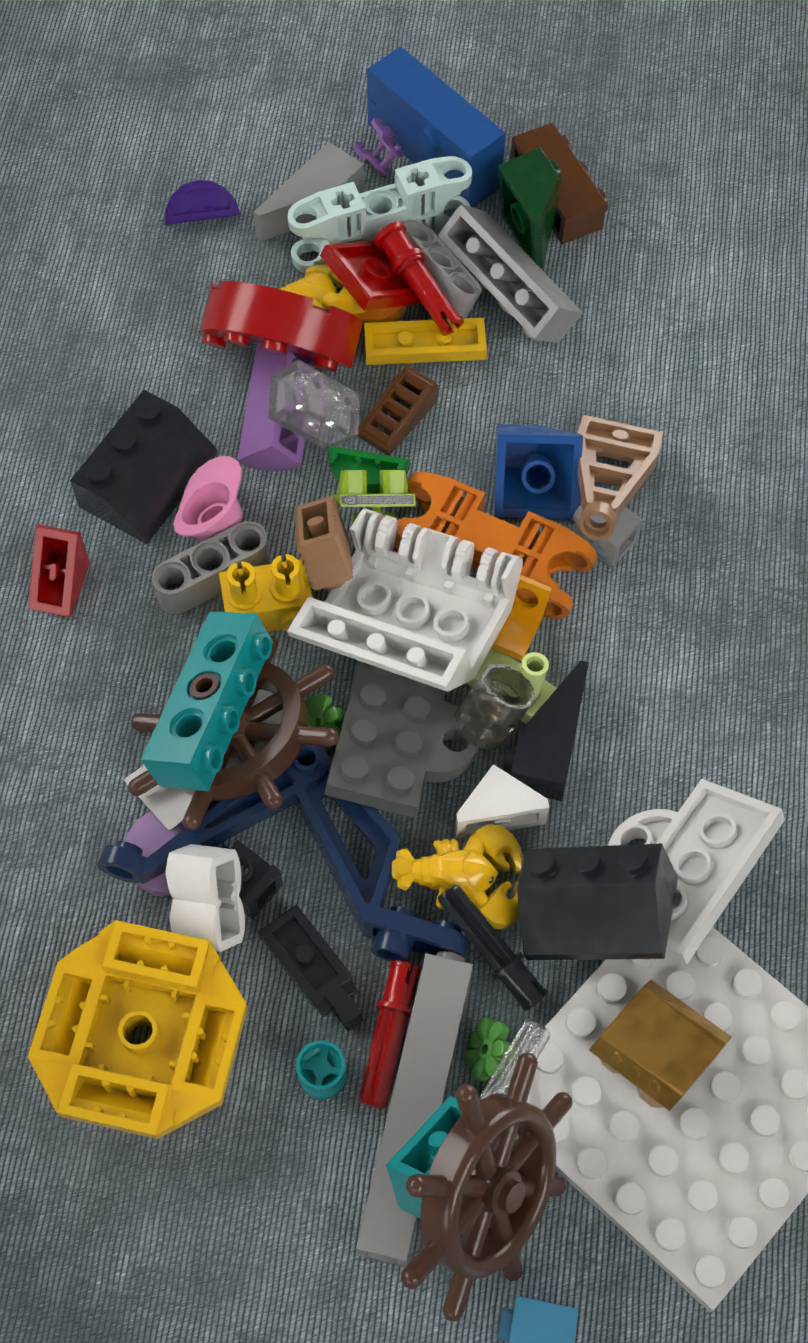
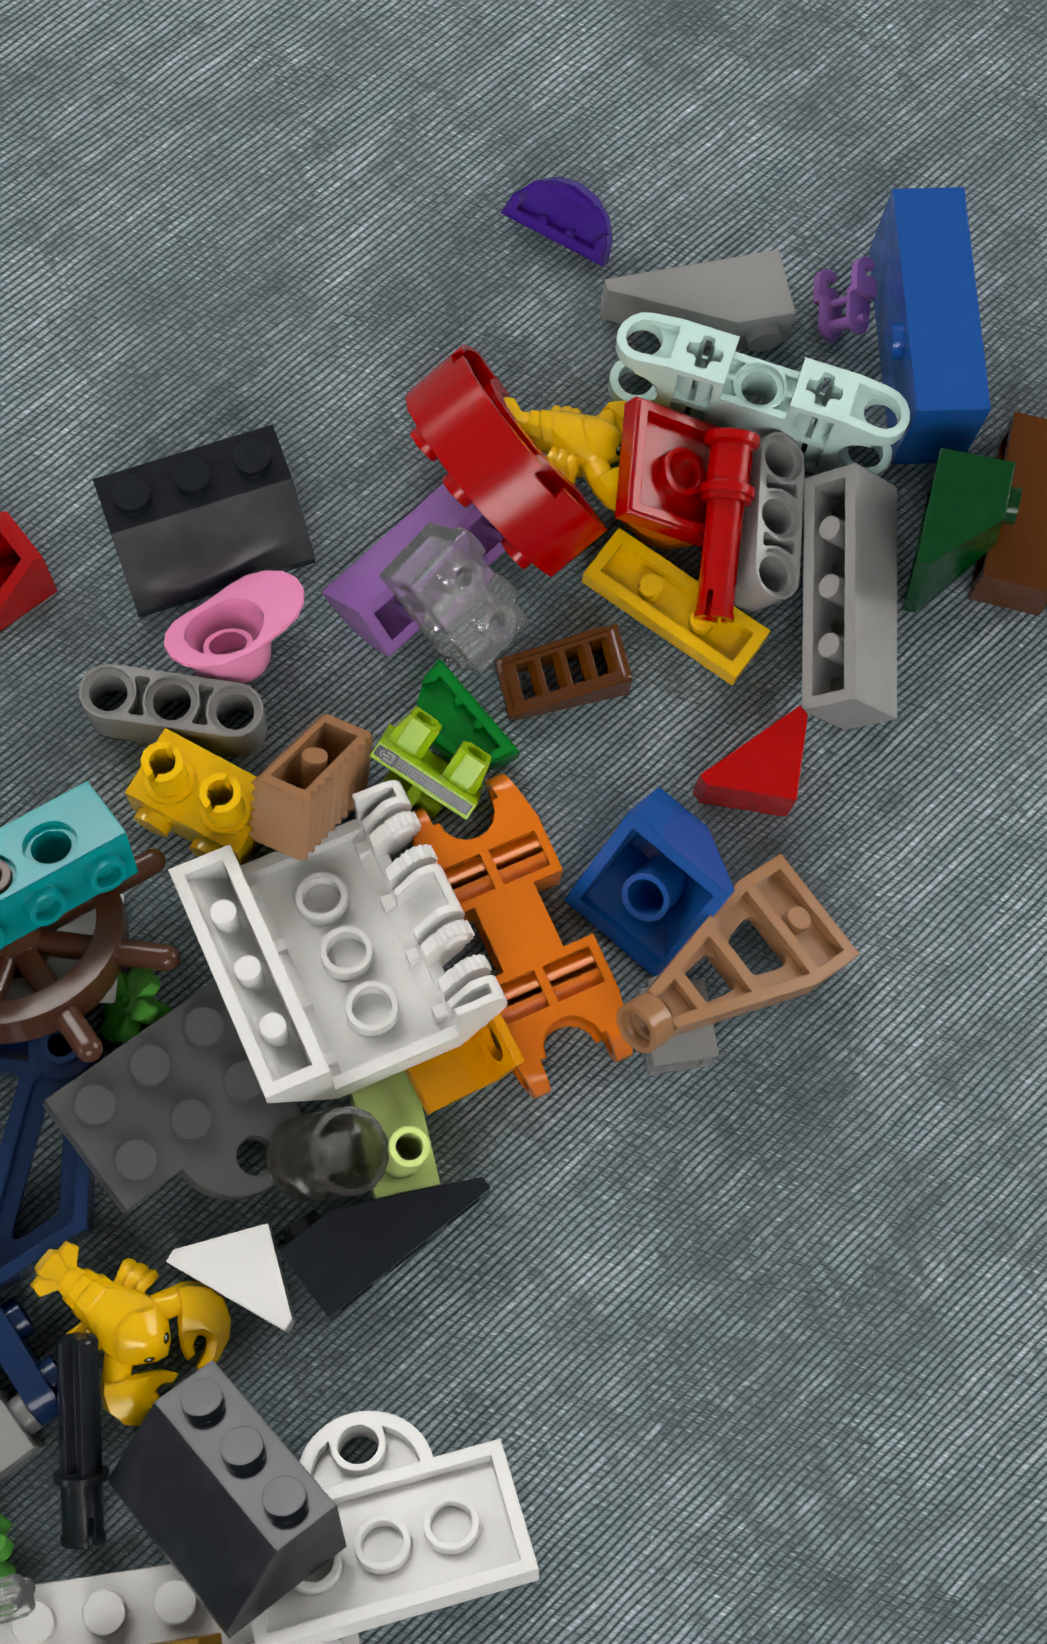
camera: 30 degrees right, 10 degrees up
(541, 384) = (761, 772): none -> red slope

